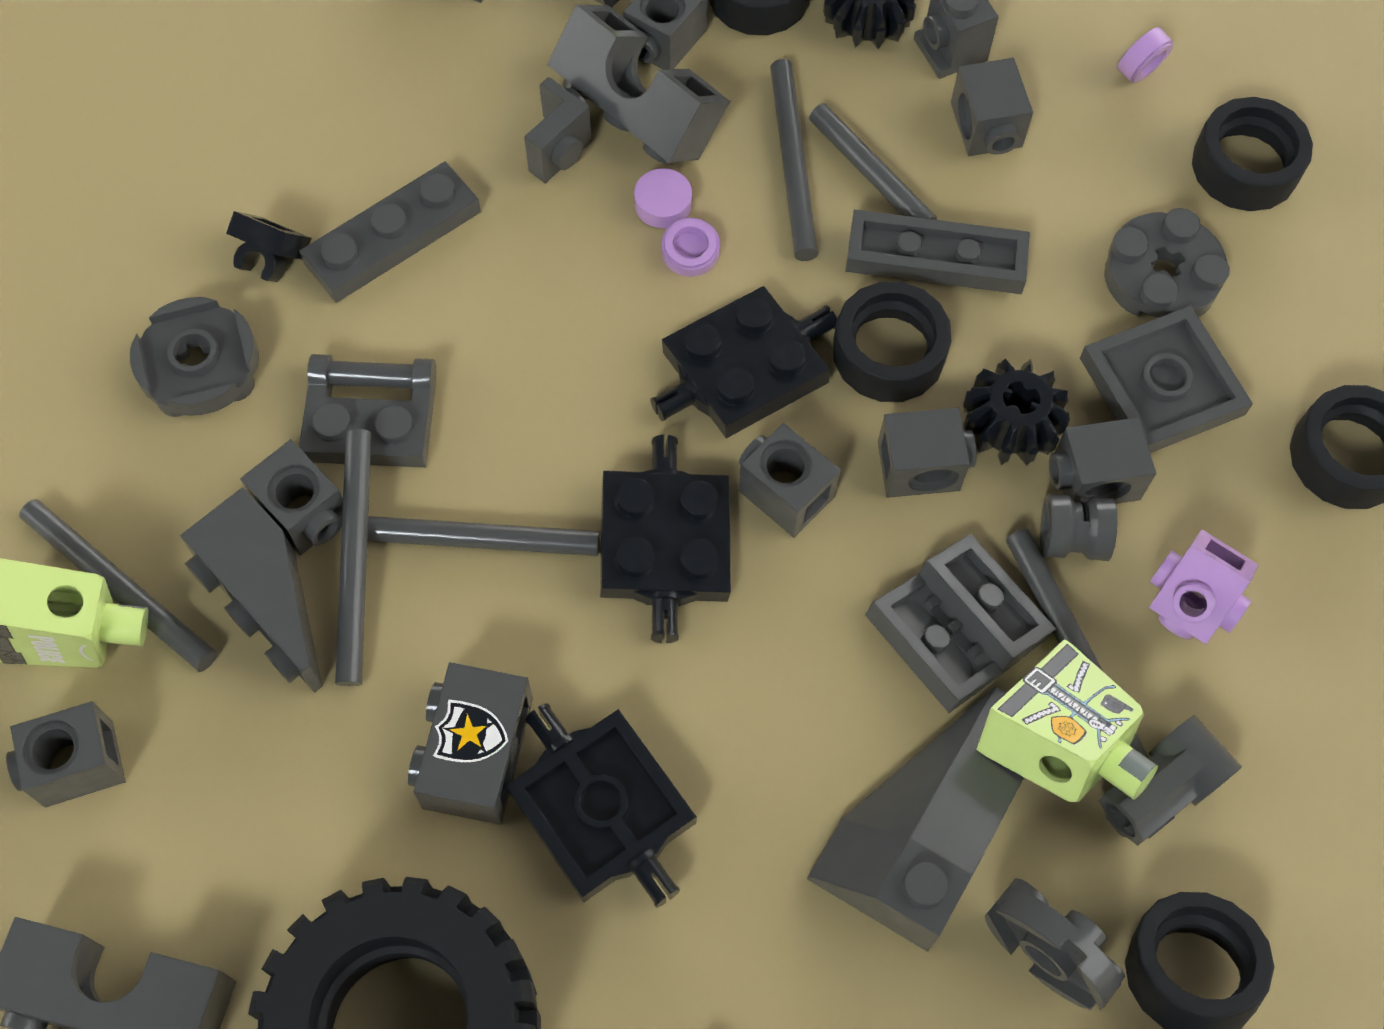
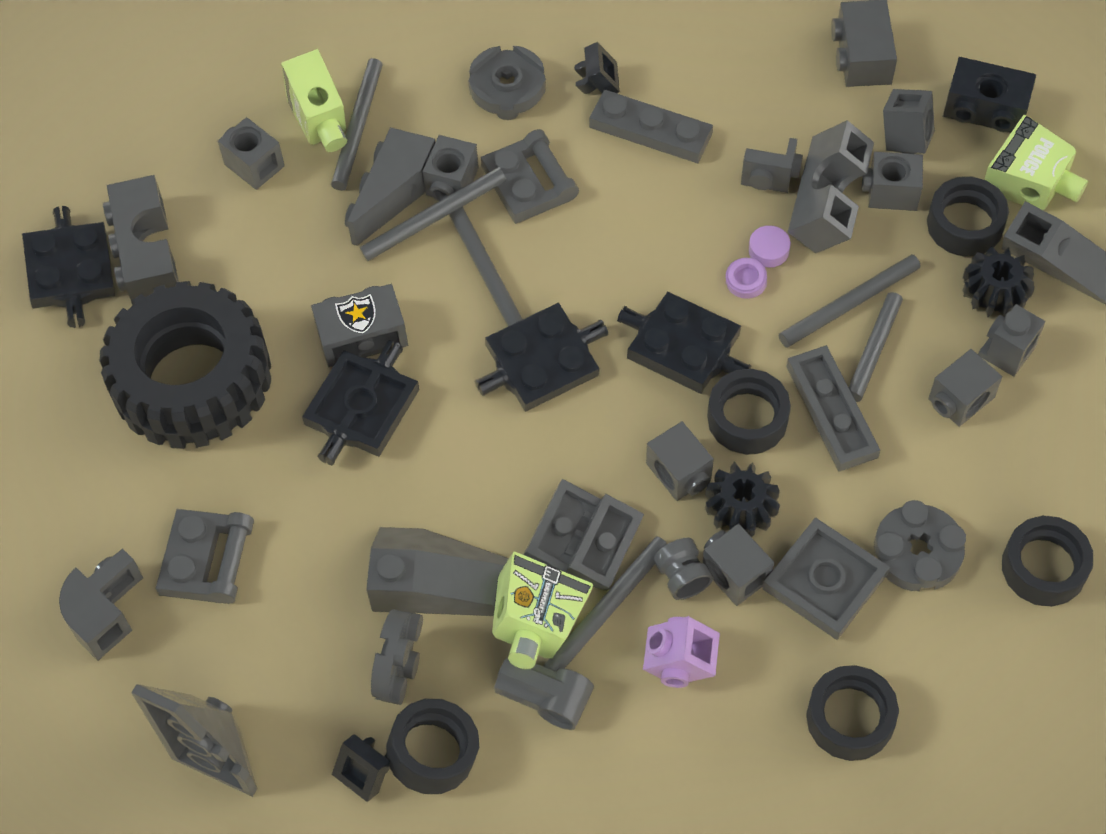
camera: 65 degrees right, 5 degrees down
(792, 503) = (614, 413): dark grey brick -> none
(1145, 55) = (1080, 461): lavender tile -> none

